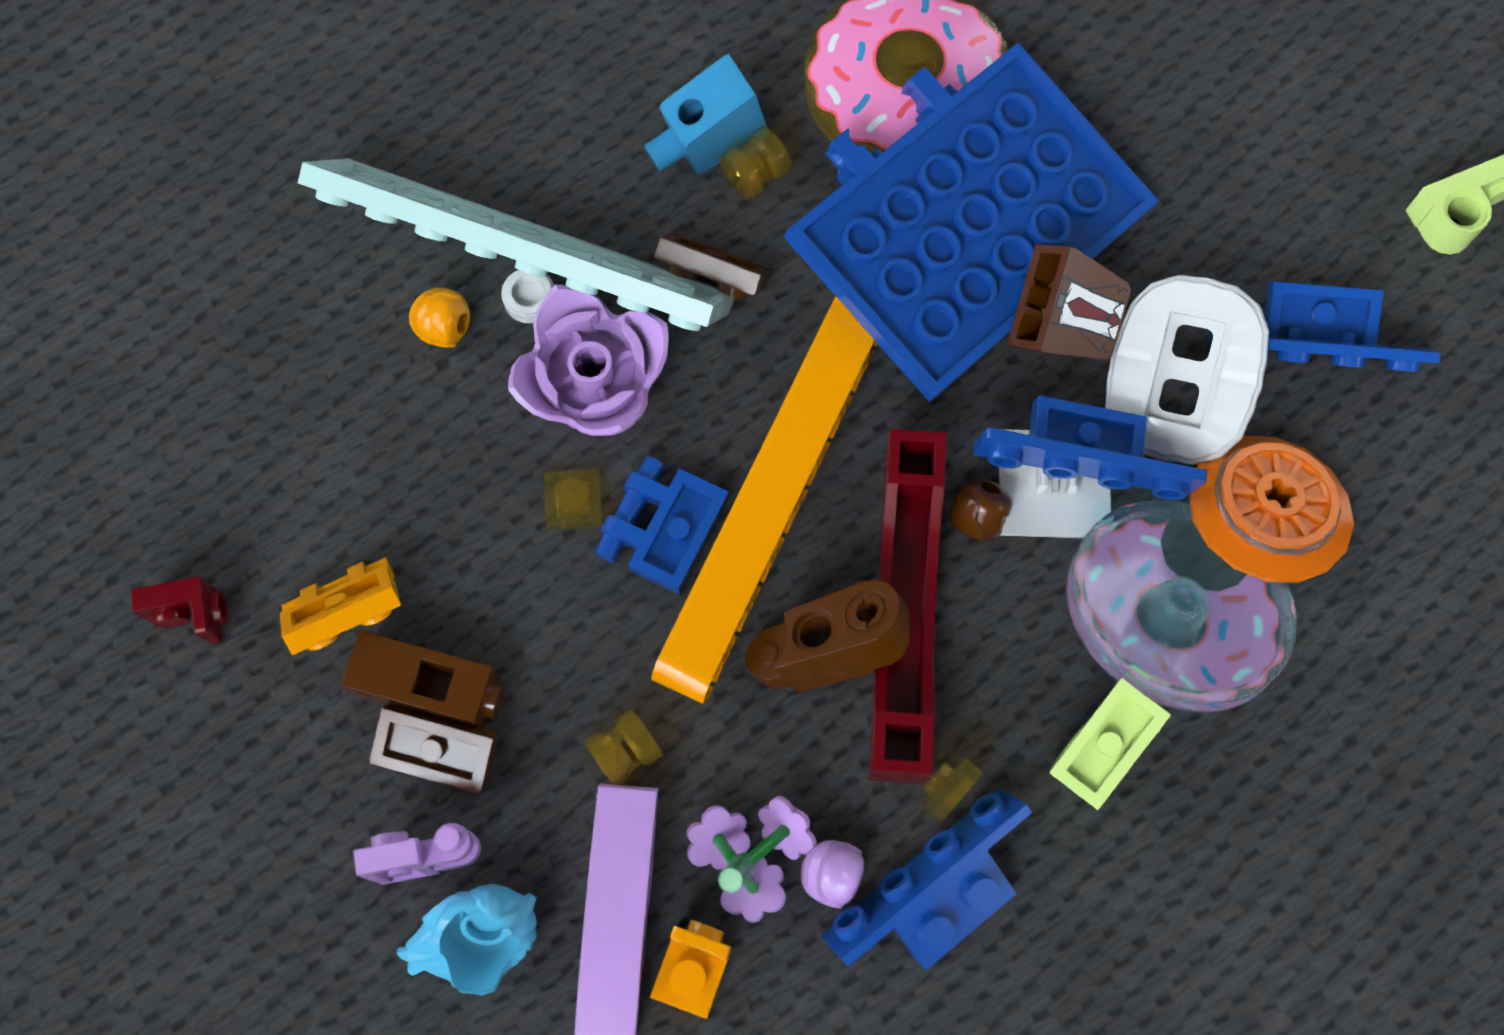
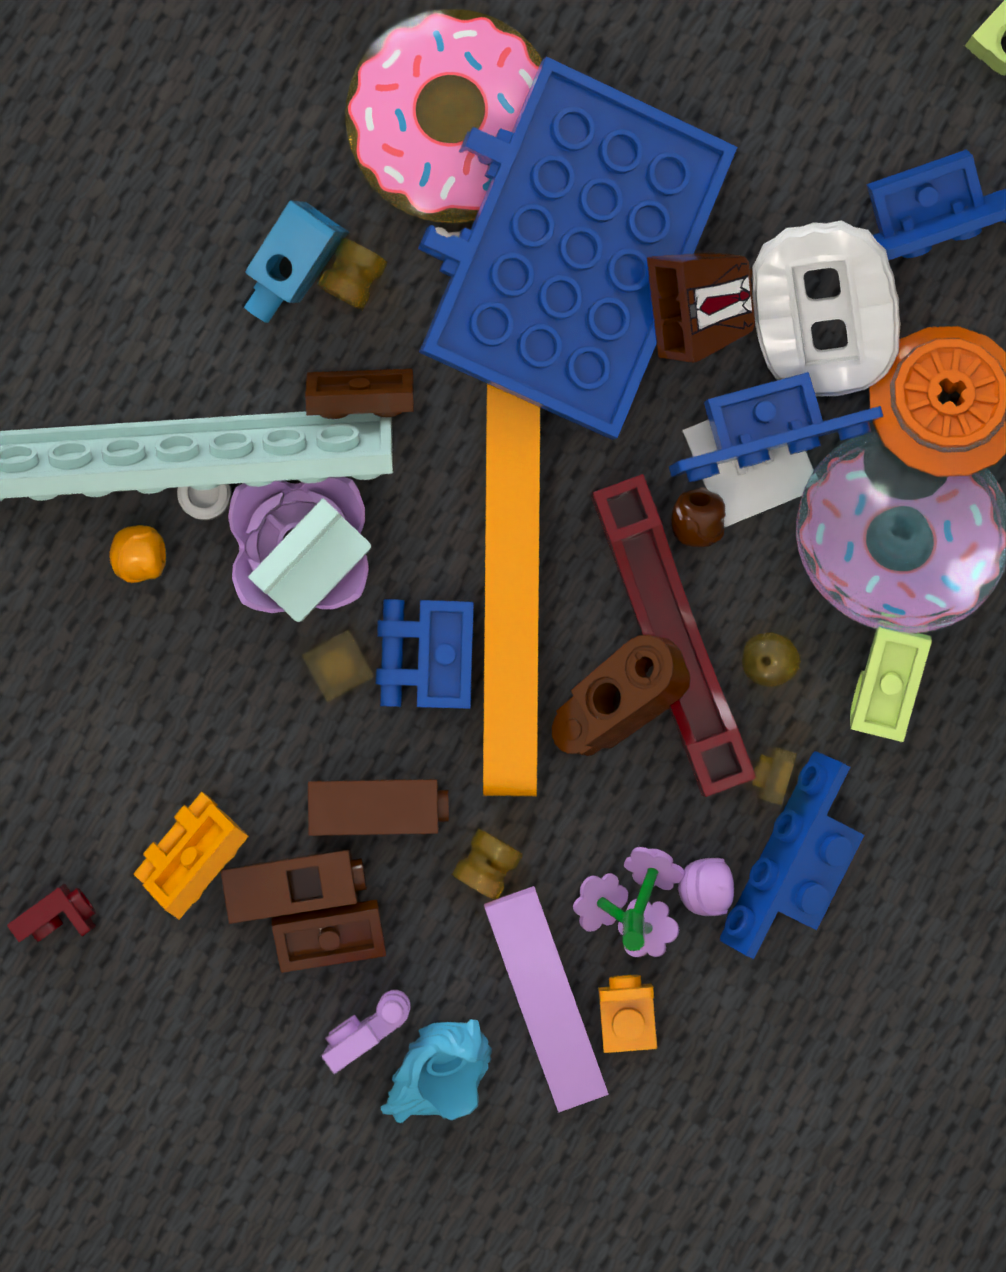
camera: 25 degrees left, 15 degrees up
(541, 642) = (376, 807): none -> reddish brown brick
(590, 374) = (310, 561): none -> light aqua panel
(1001, 686) = (783, 656): none -> clear yellow piece

